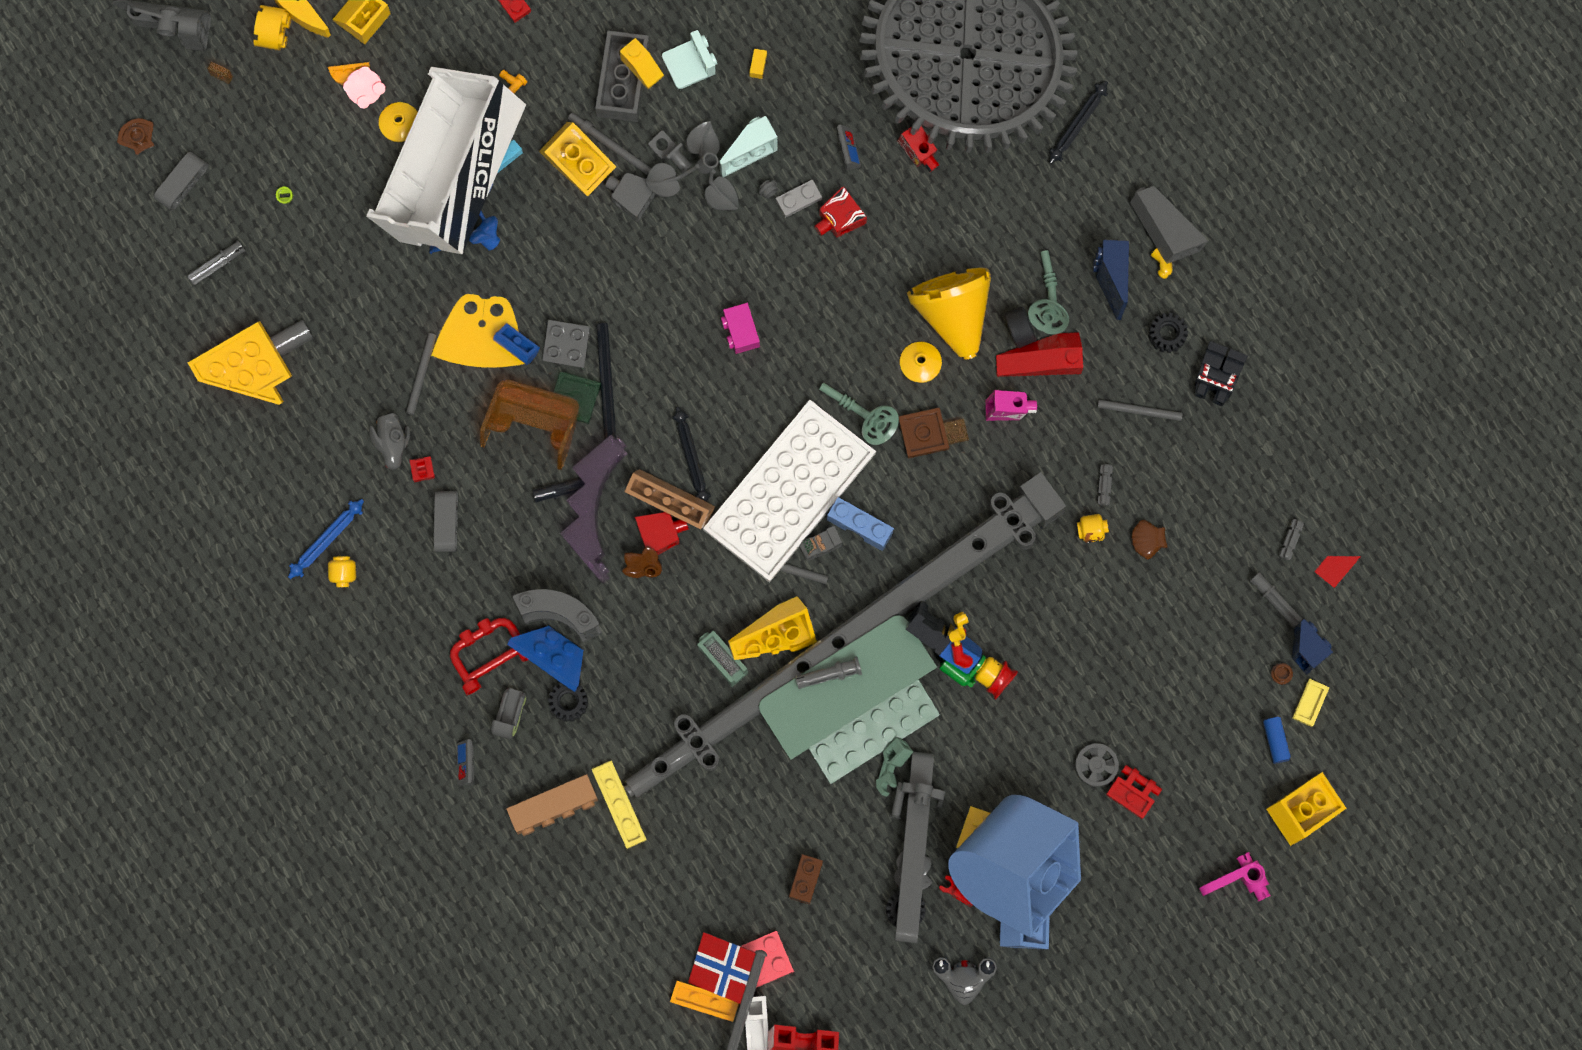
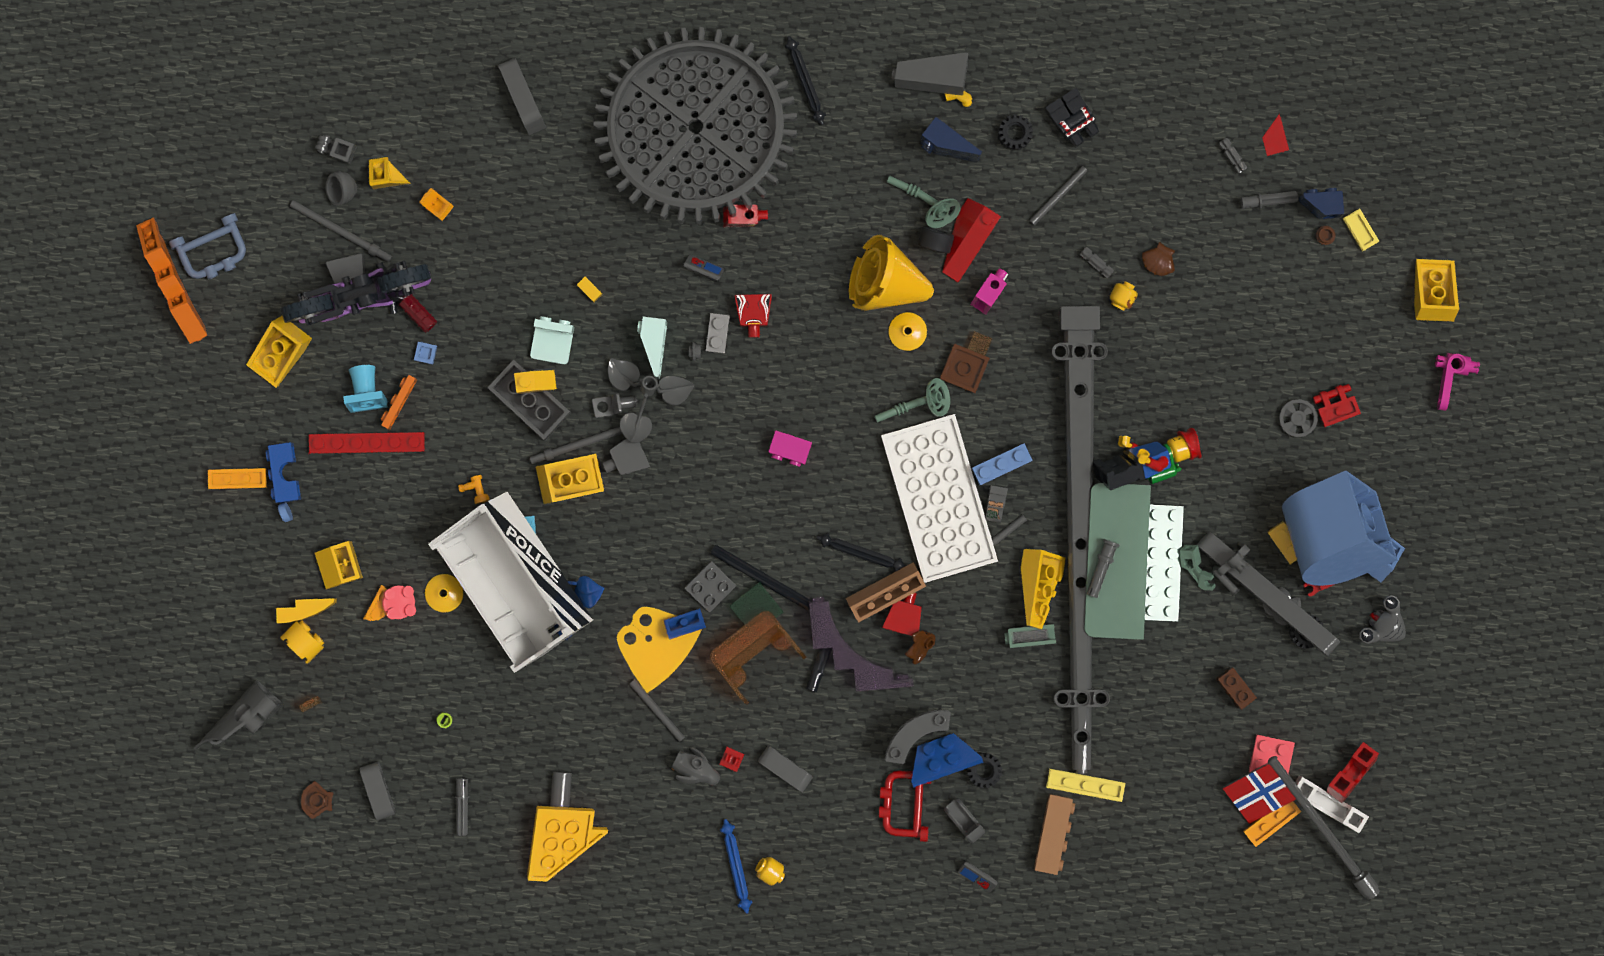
camera: 50 degrees left, 10 degrees up
(1276, 740) = (1371, 275): blue brick -> none

